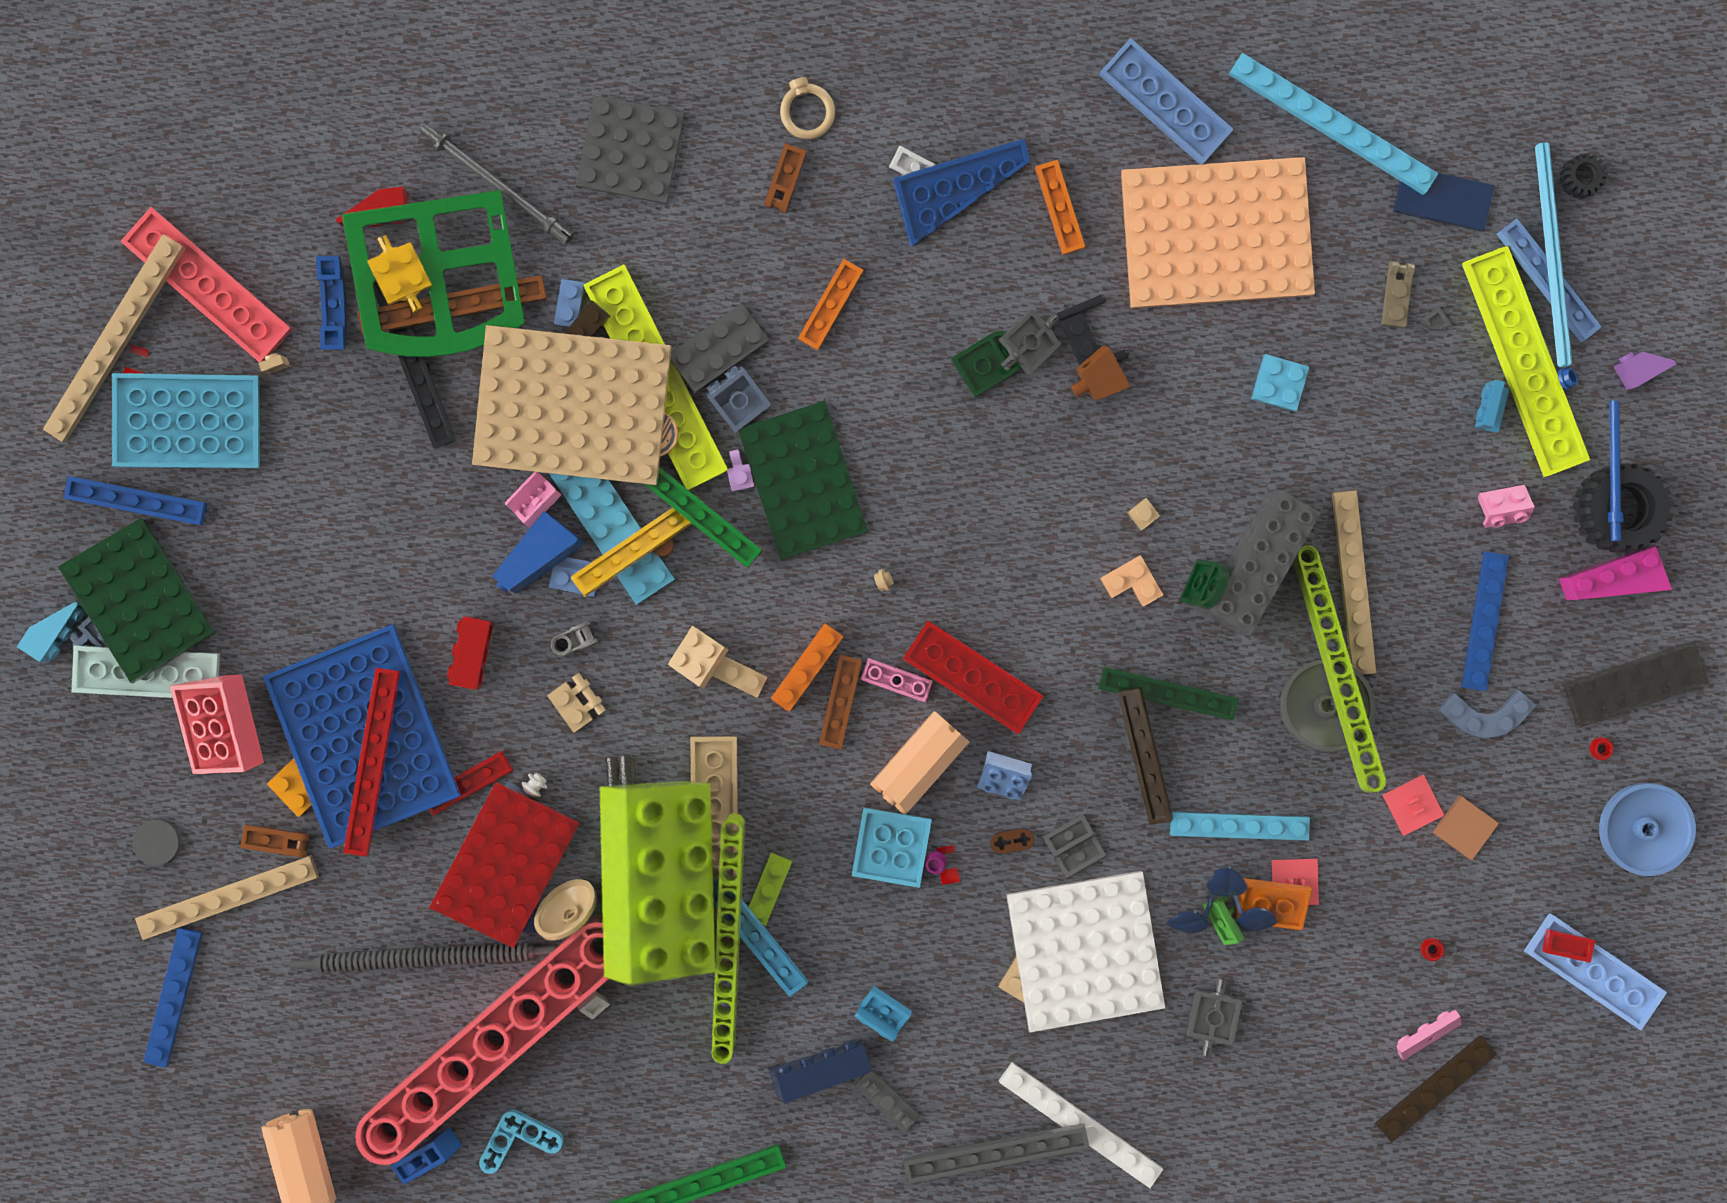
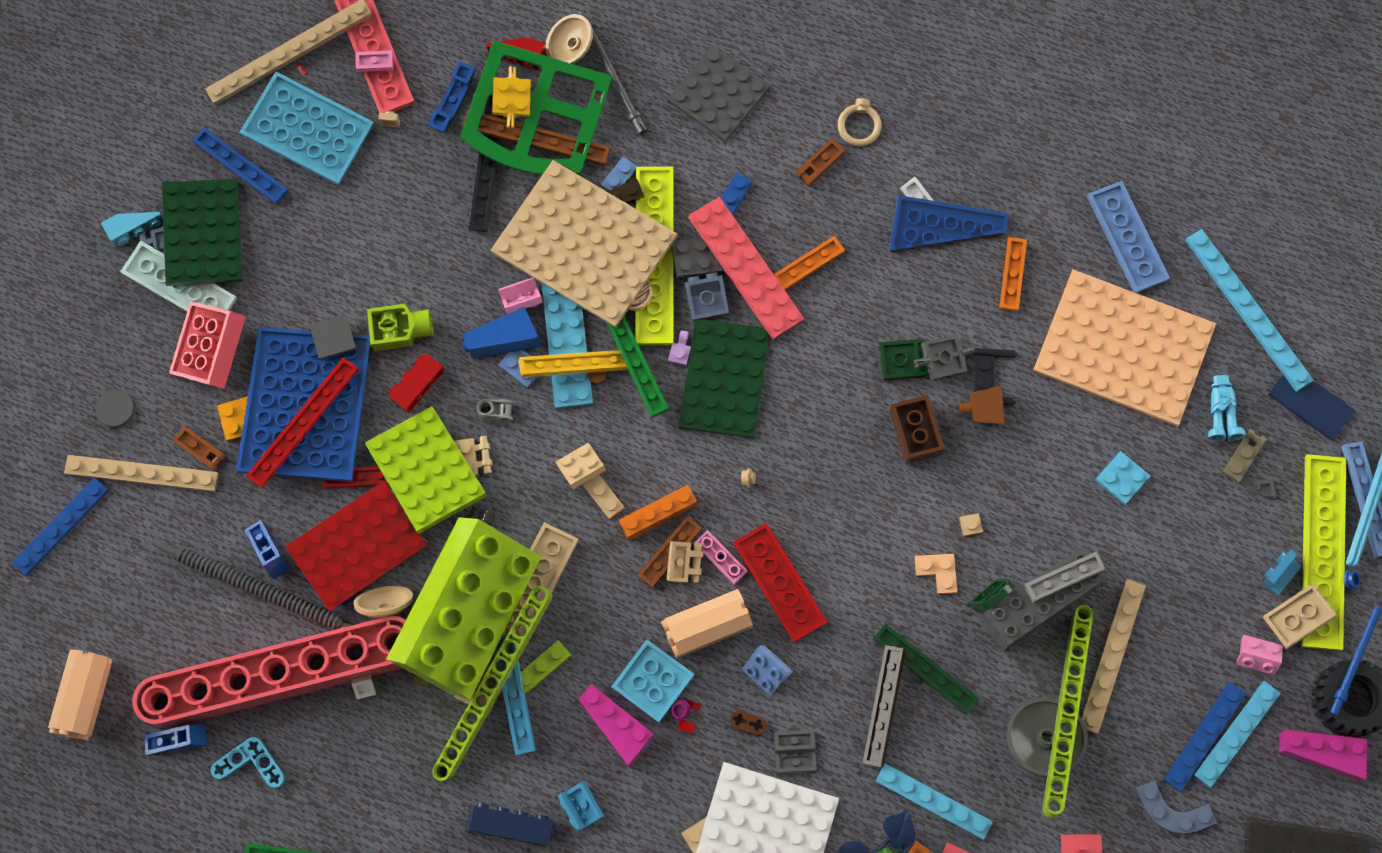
camera: 35 degrees right, 15 degrees down
(218, 303) = (374, 61): none -> bright pink plate
(351, 648) = (333, 337): none -> dark grey tile
(410, 913) = (267, 549): none -> blue slope
(416, 601) = (397, 327): none -> lime brick
(428, 168) = (569, 39): none -> tan dish
(533, 745) = (425, 469): none -> lime plate
(707, 271) = (736, 191): none -> blue plate
(764, 344) = (746, 268): none -> coral plate
(856, 707) = (679, 561): none -> tan plate
(877, 912) = (617, 725): none -> dark pink wedge
(1039, 439) = (916, 429): none -> reddish brown brick
(1278, 534) = (1064, 577): none -> light grey tile
(1350, 242) = (1223, 400): none -> medium azure piece
(1516, 602) = (1236, 734): none -> medium azure plate
(1531, 446) = (1299, 616): none -> tan tile

